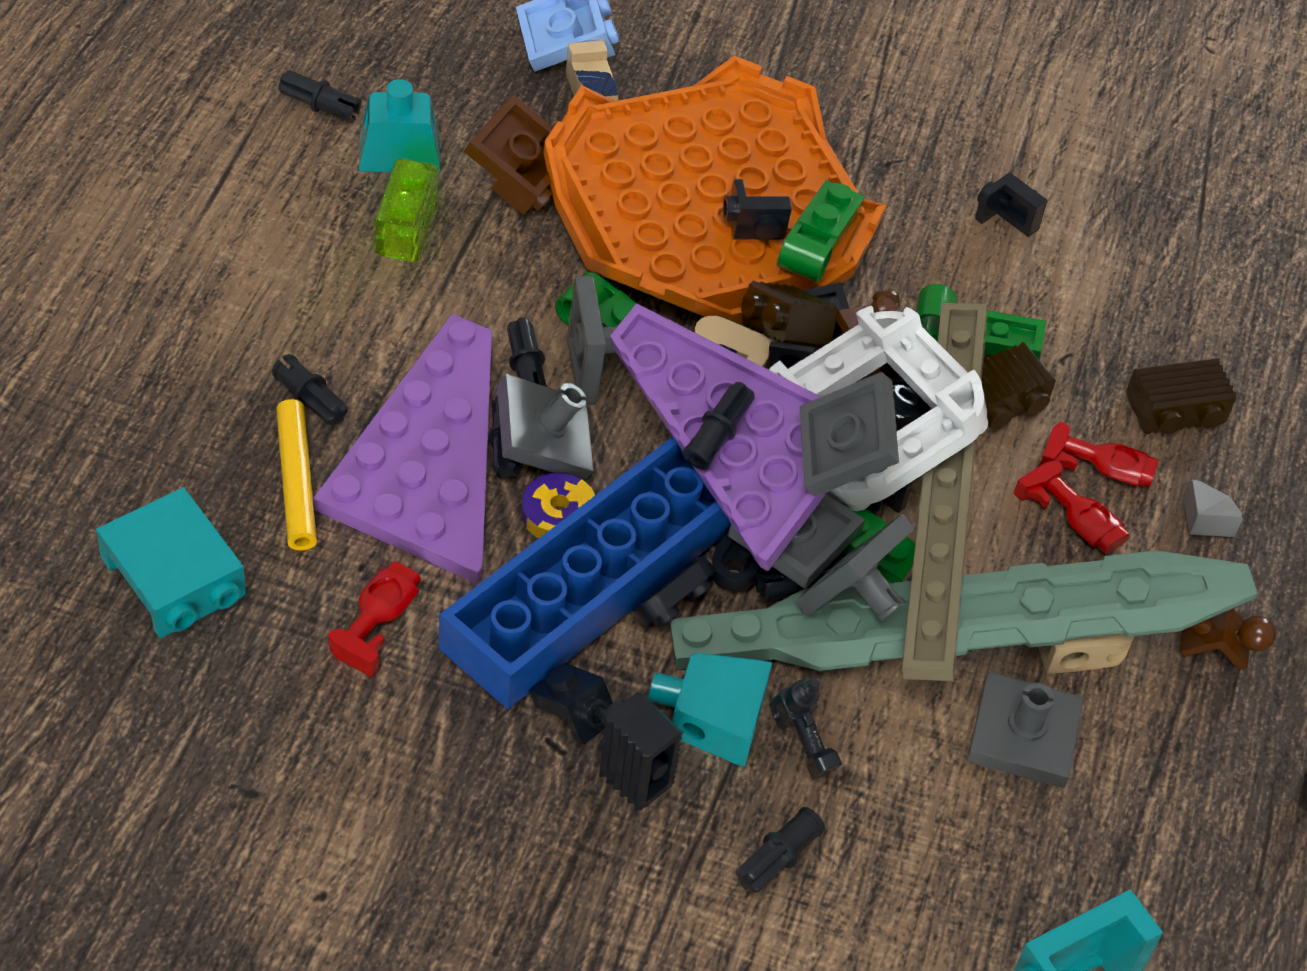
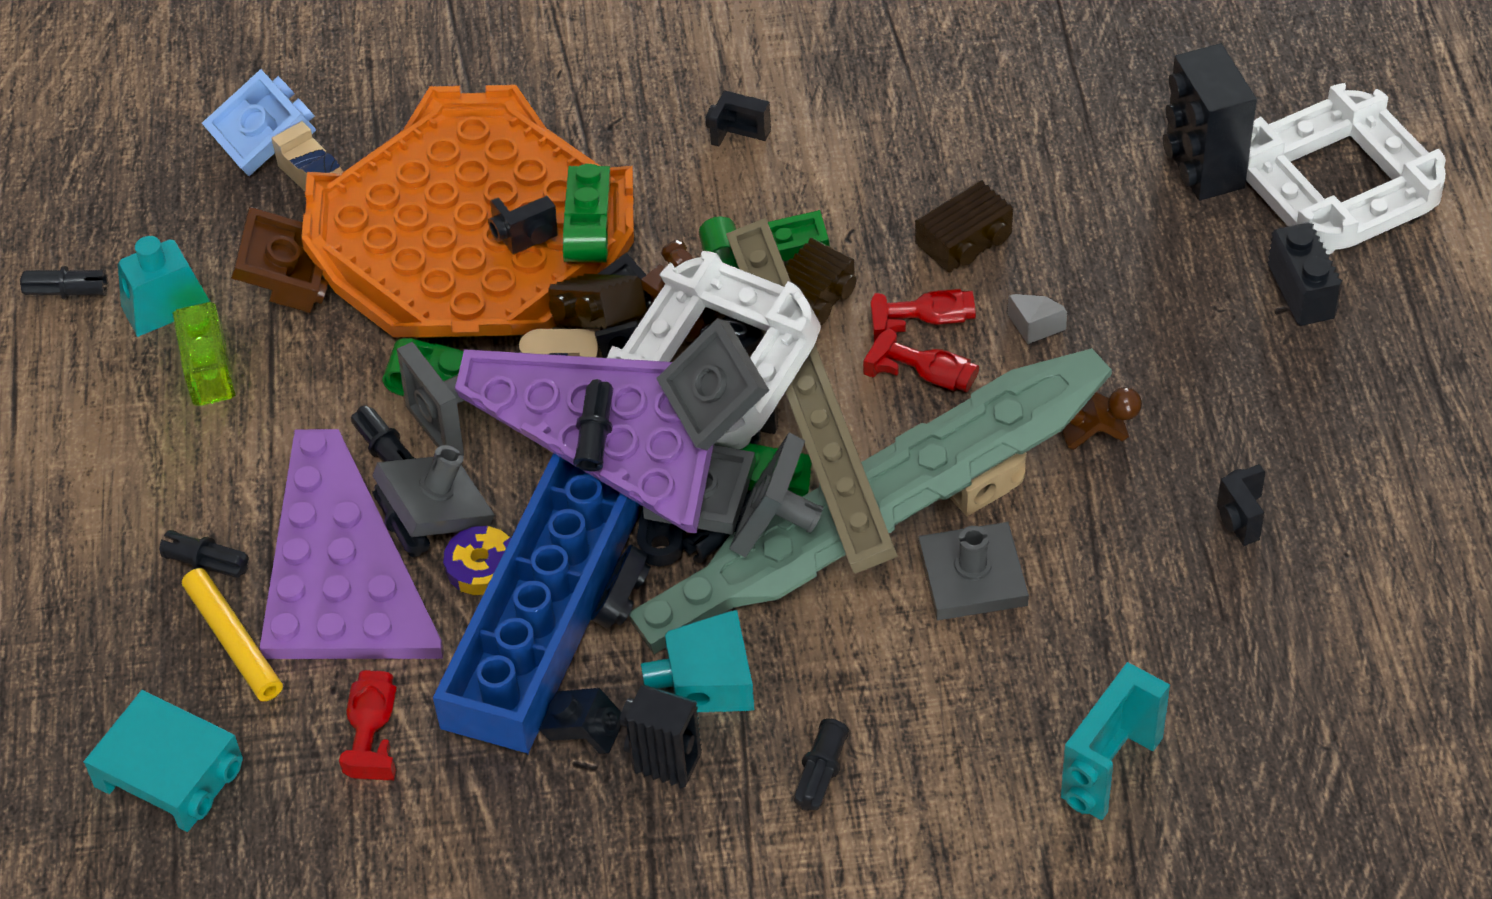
camera: 15 degrees left, 0 degrees up
(795, 707) = (775, 638): black piece -> none

